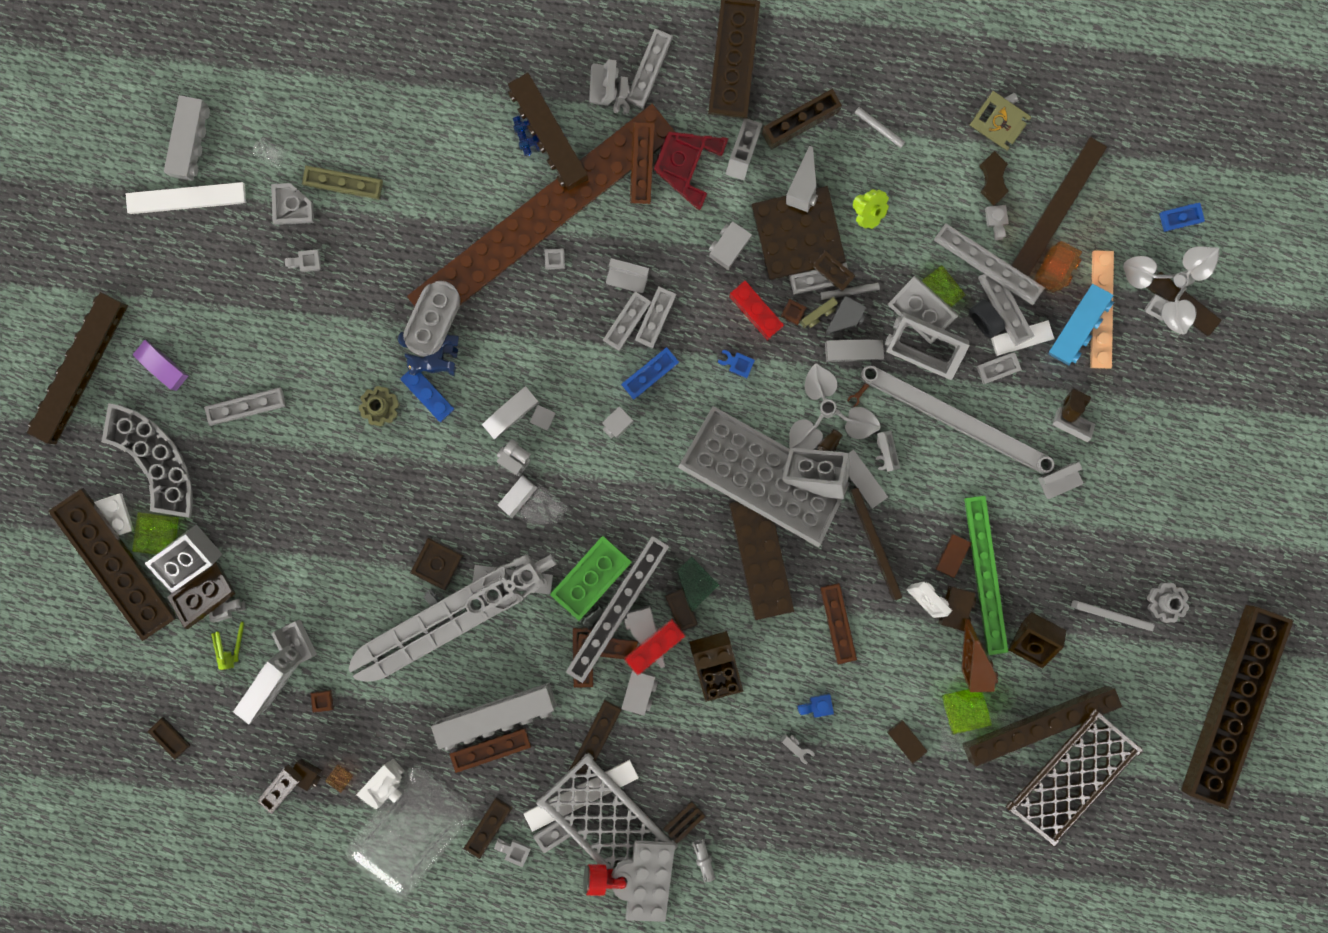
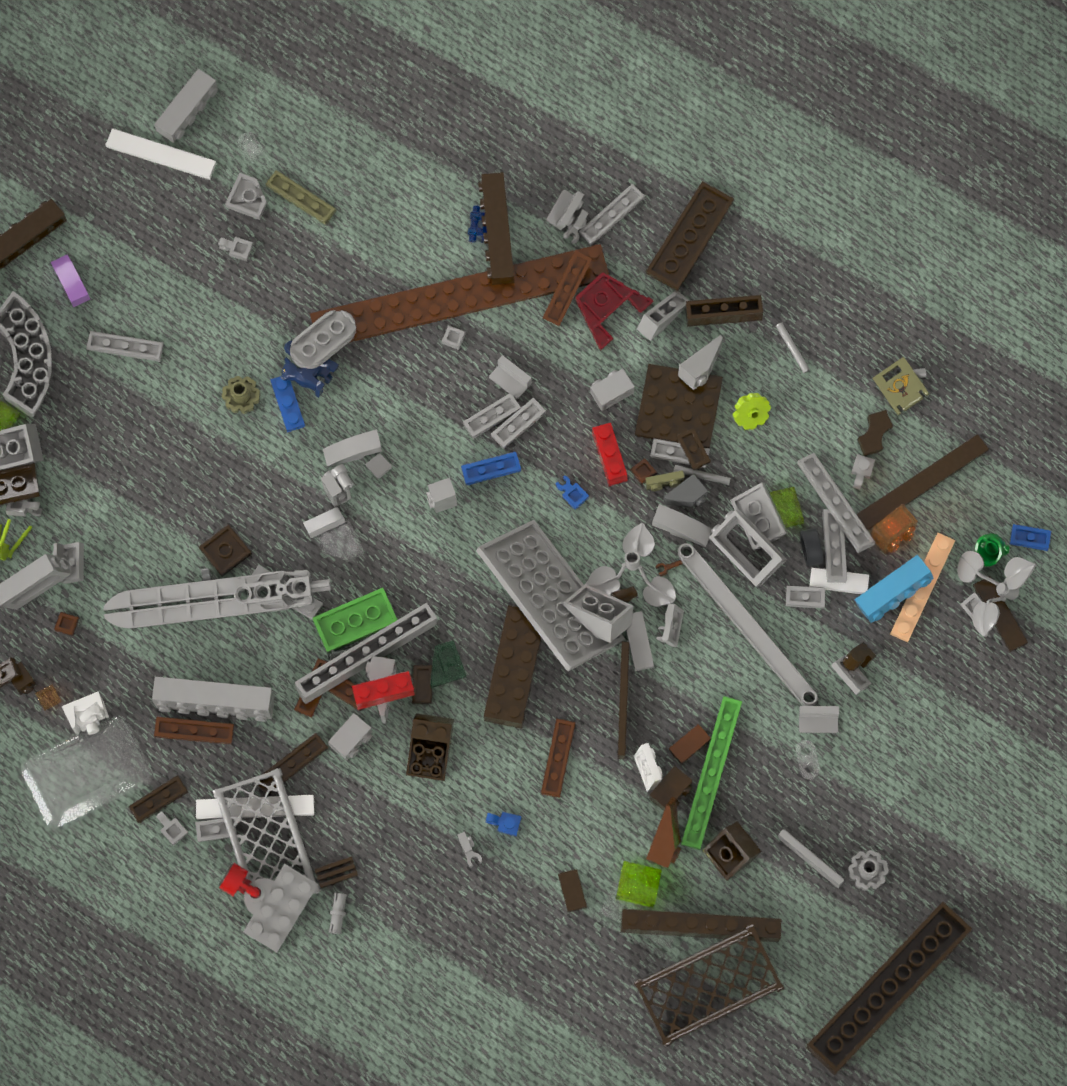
camera: 30 degrees right, 15 degrees down
(1069, 521) = (807, 760): none -> clear plate
(1153, 245) = (991, 548): none -> green helmet

